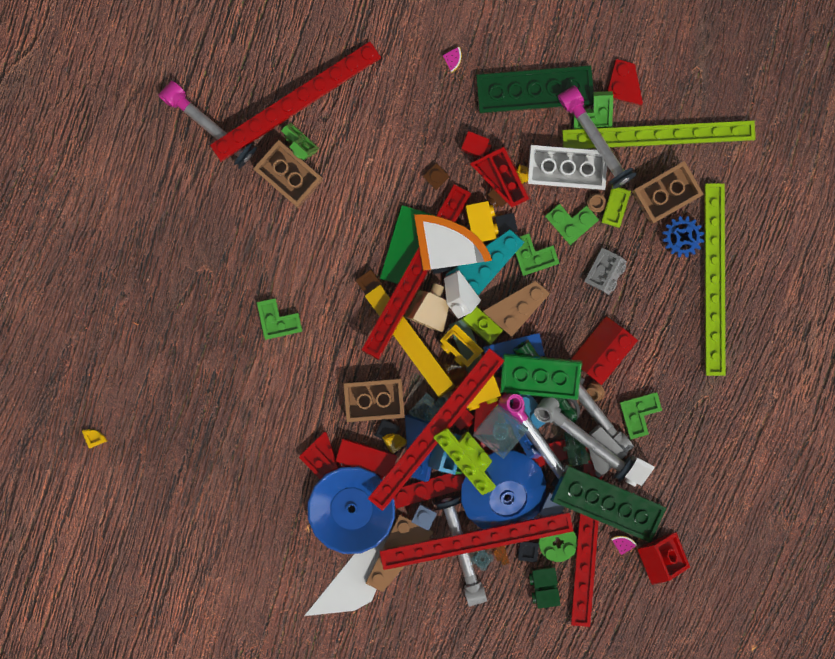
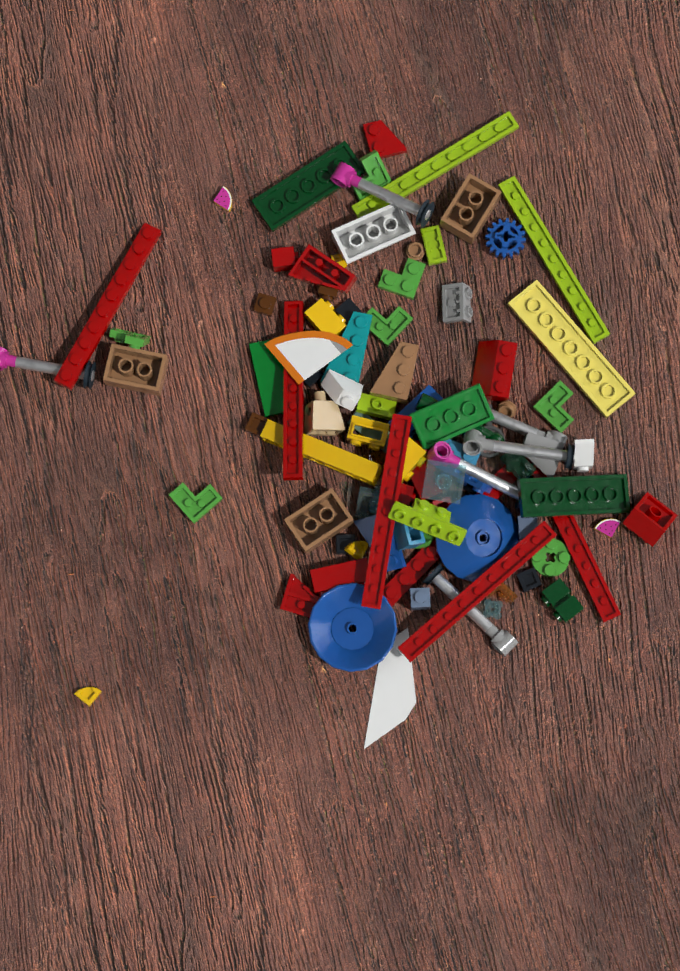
camera: 25 degrees left, 10 degrees down
(402, 533) = (408, 623): medium nougat wing -> none
(683, 369) = (571, 348): none -> light yellow plate

